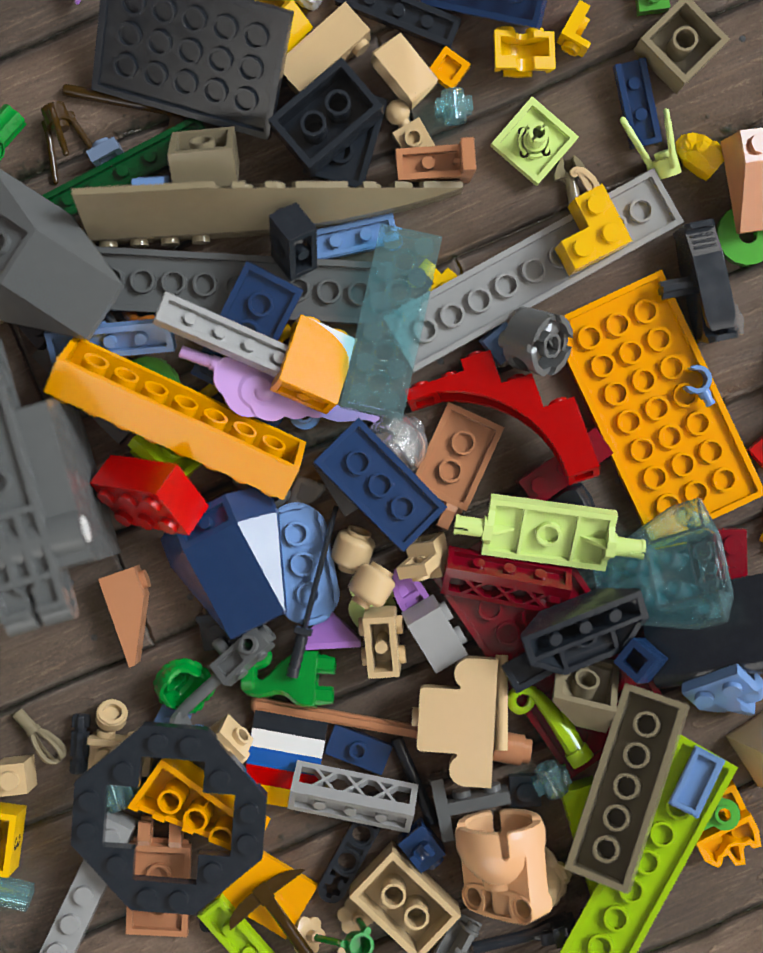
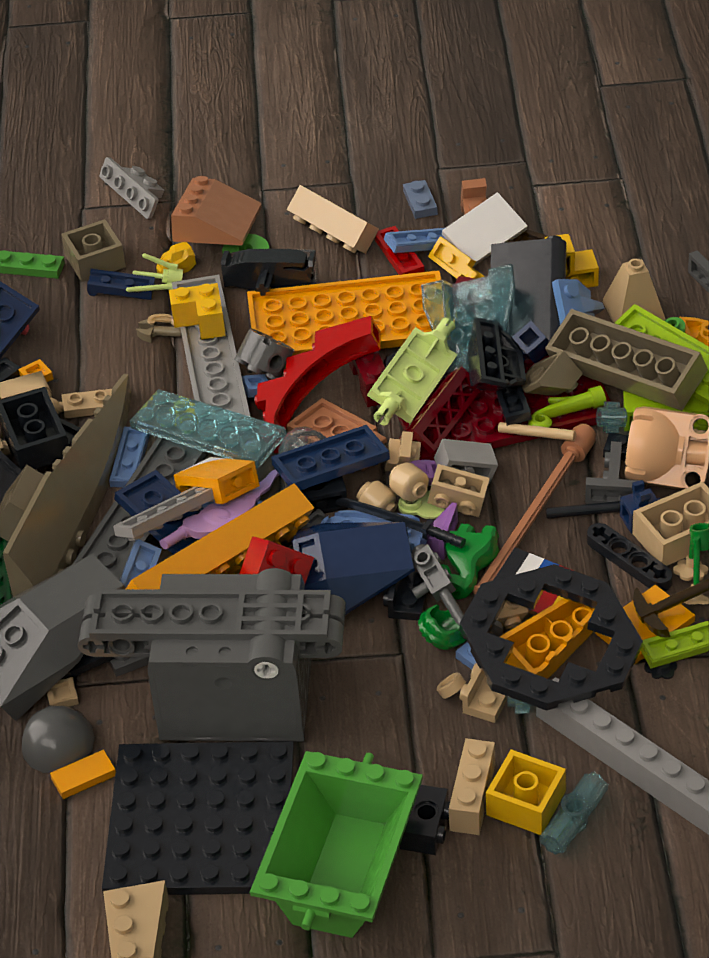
camera: 70 degrees left, 45 degrees down
(32, 730) = (445, 747): dark tan piece -> none
(79, 748) = (468, 717): black axle -> none
(127, 602) = (370, 654): nougat slope -> none
(165, 859) = (638, 700): nougat tile -> none
(293, 241) = (112, 449): black brick -> none
(351, 802) = (586, 533): light grey fence -> none
(358, 748) = (546, 536): dark blue plate -> none
(437, 162) = (105, 375): nougat bracket -> none
(453, 106) = (65, 374): clear light blue gear -> none
(461, 720) = (540, 453): tan brick -> none
(523, 53) = (48, 330): yellow cylinder -> none
(541, 133) = (116, 339): yellowish green plate -> none
(570, 37) = (51, 306): yellow bracket -> none
(696, 781) = (634, 320): medium blue tile -> none
(703, 392) = (341, 281): medium blue piece -> none

